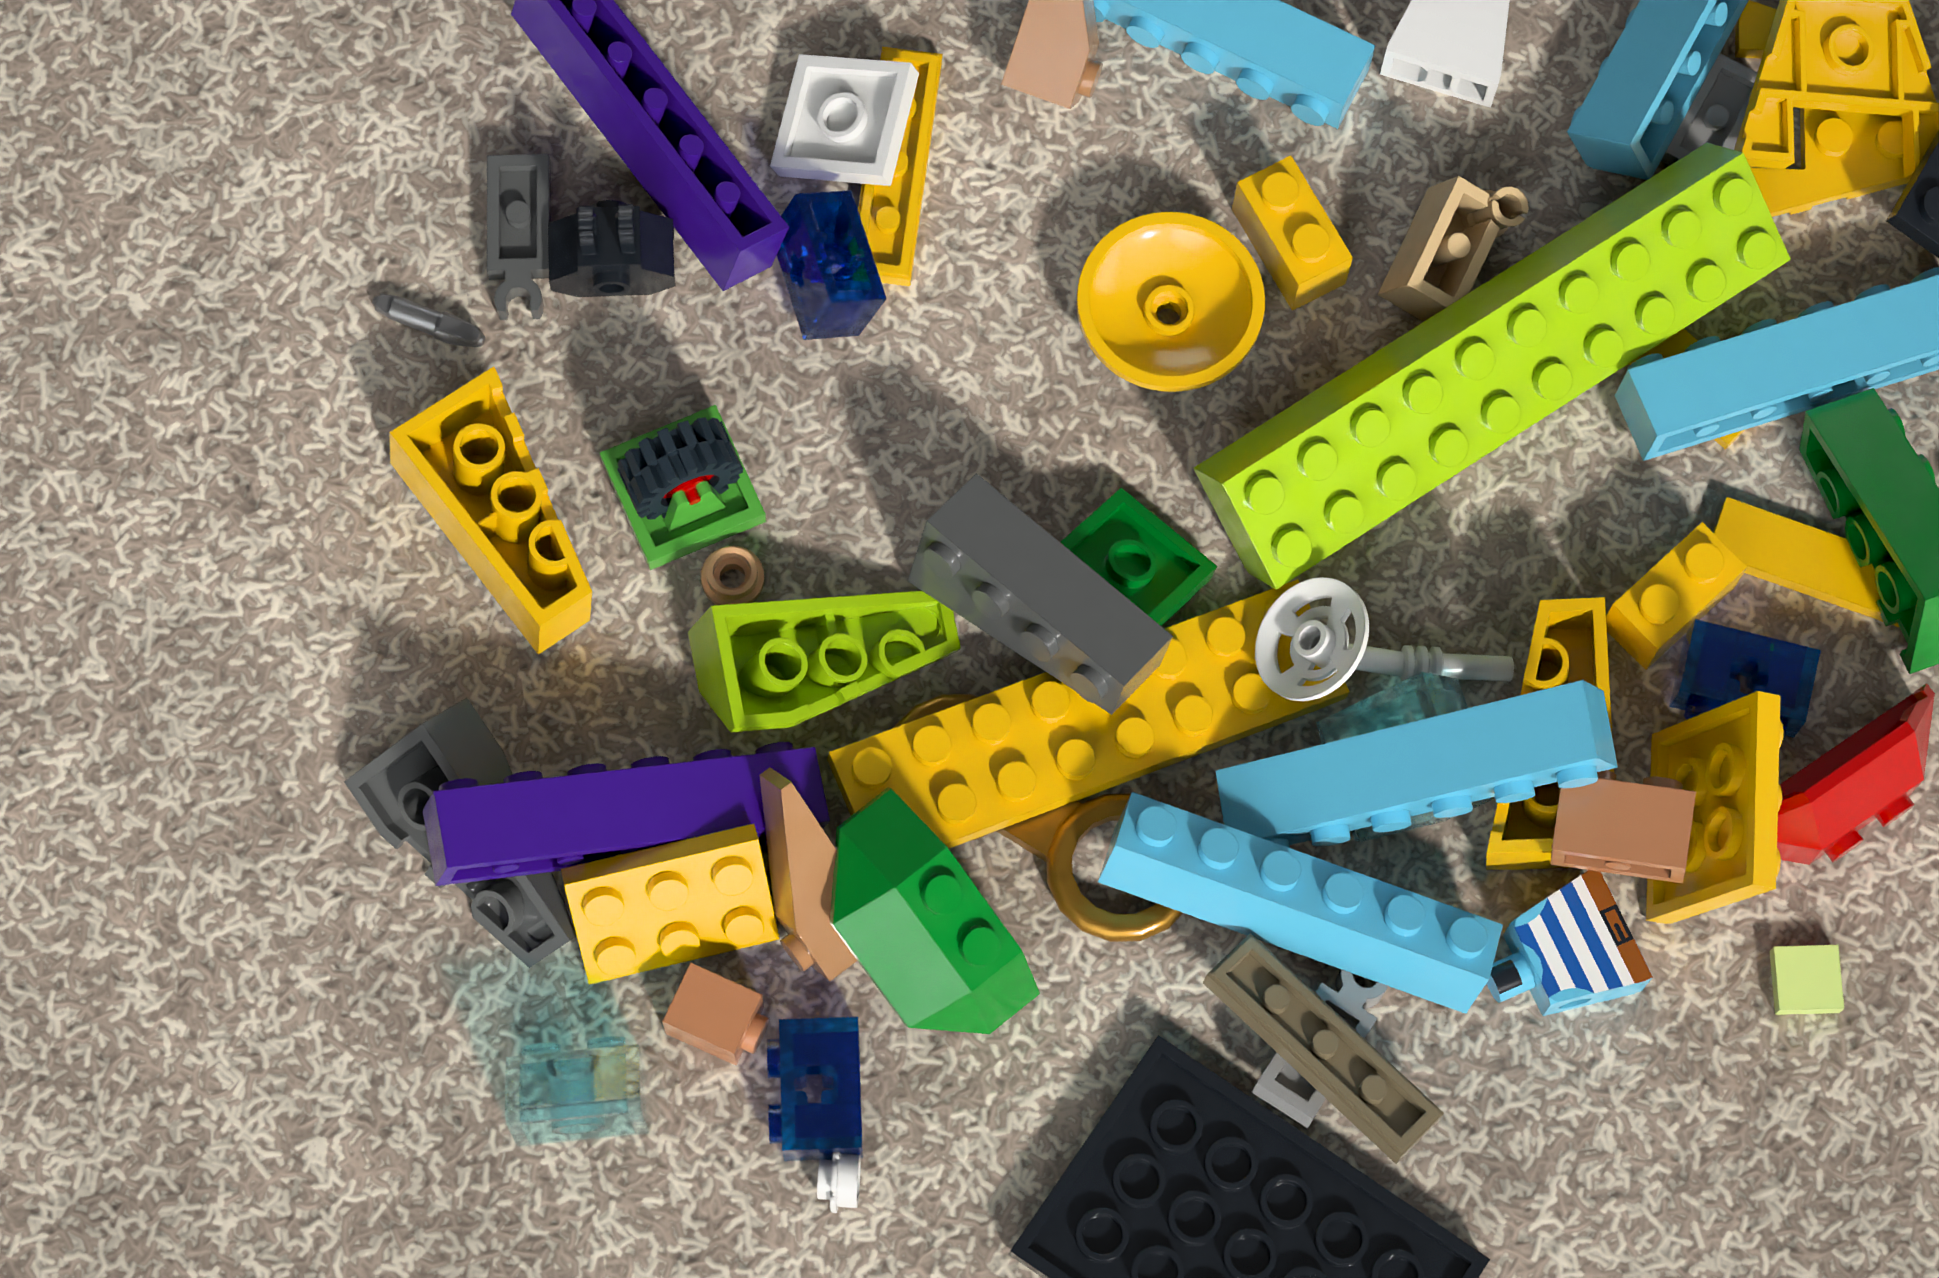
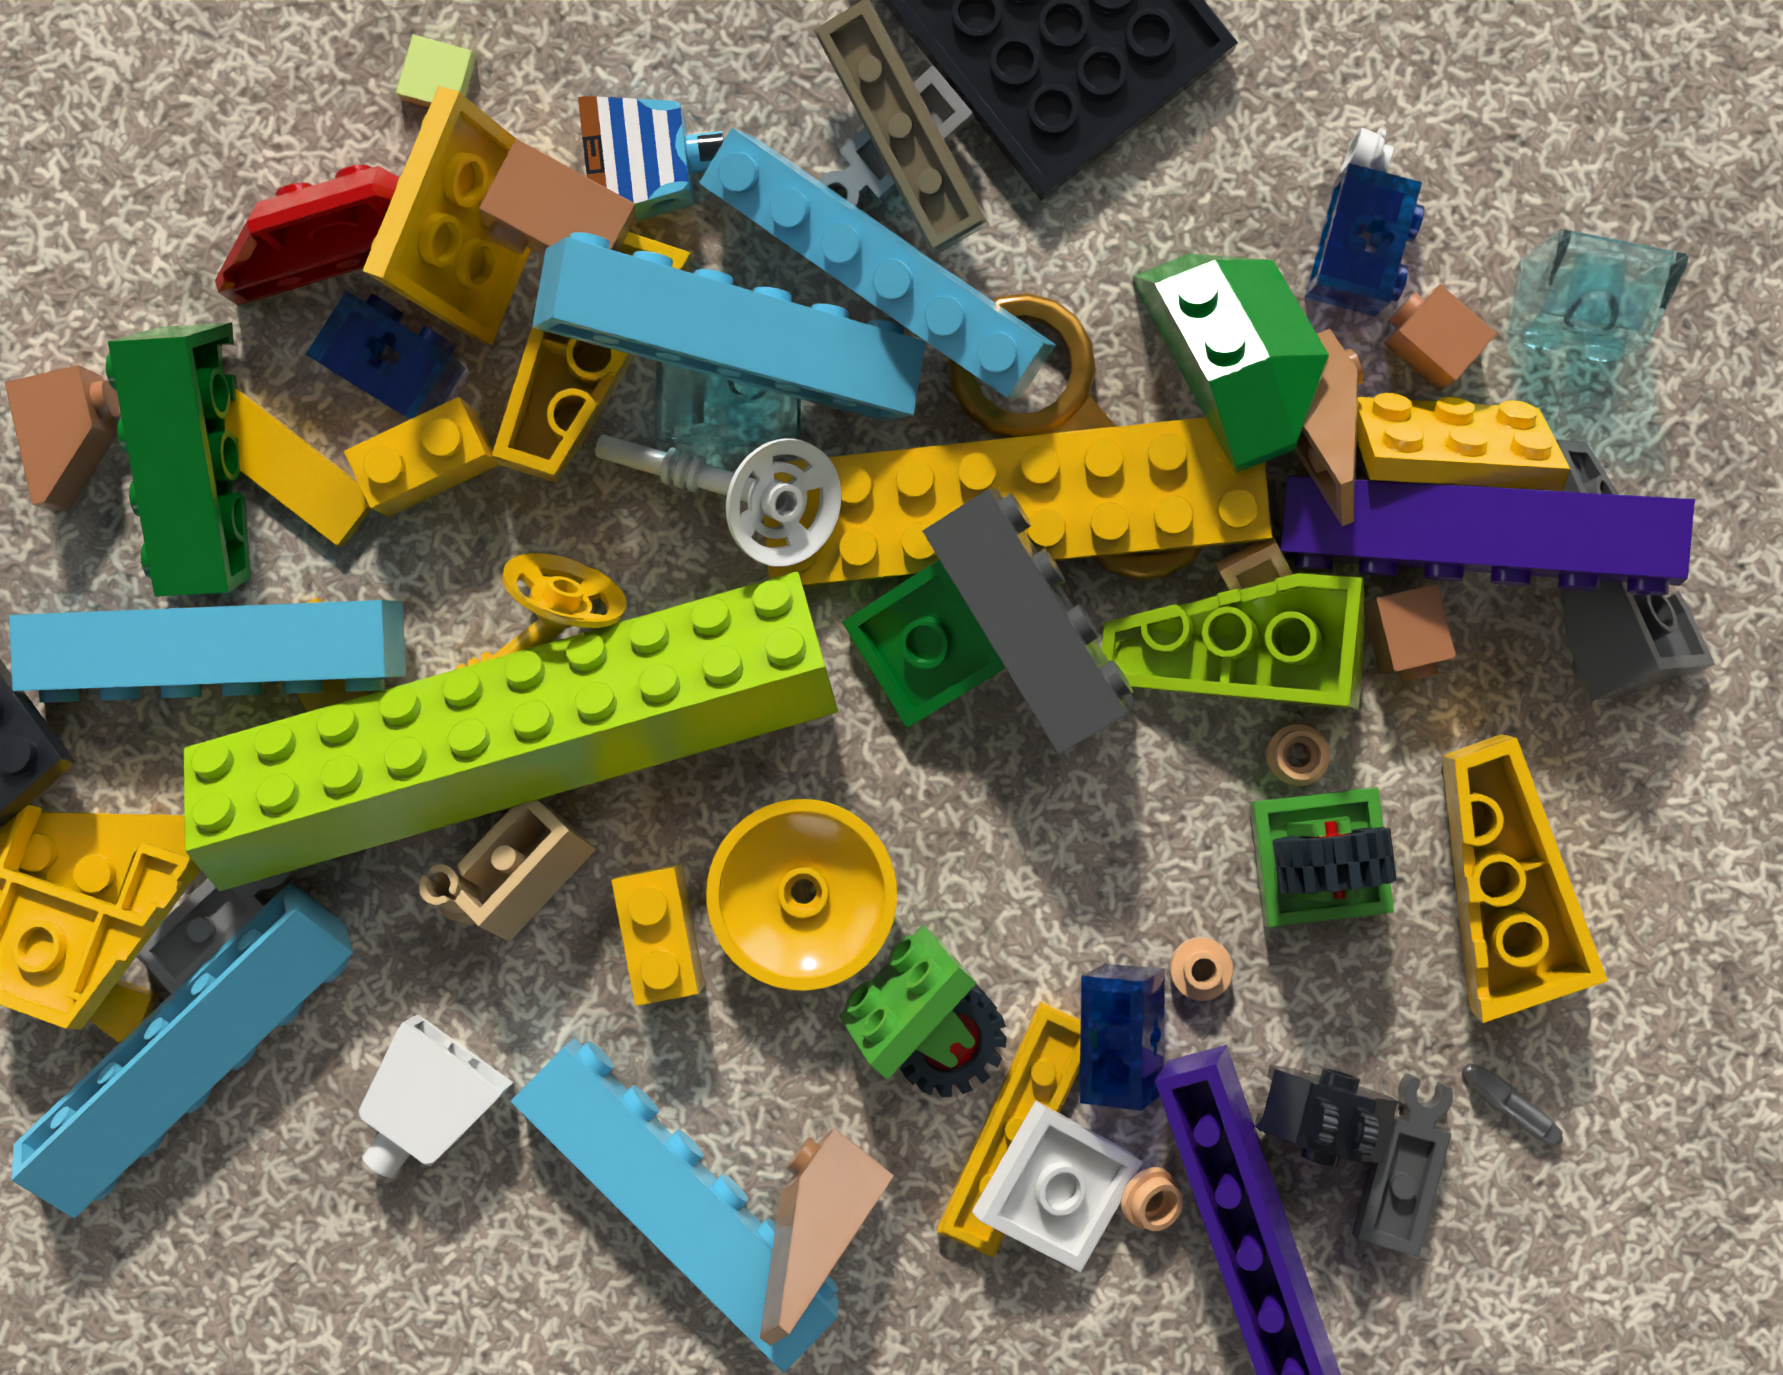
camera: 160 degrees left, 15 degrees up
(661, 716) = (1409, 632): none -> nougat brick
(751, 135) = (1152, 1199): none -> light nougat plate
(770, 370) = (1187, 955): none -> light nougat plate
(828, 731) = (1254, 565): none -> light nougat plate
(1018, 227) = (925, 1018): none -> bright green plate
(1495, 497) = (556, 600): none -> yellow dish

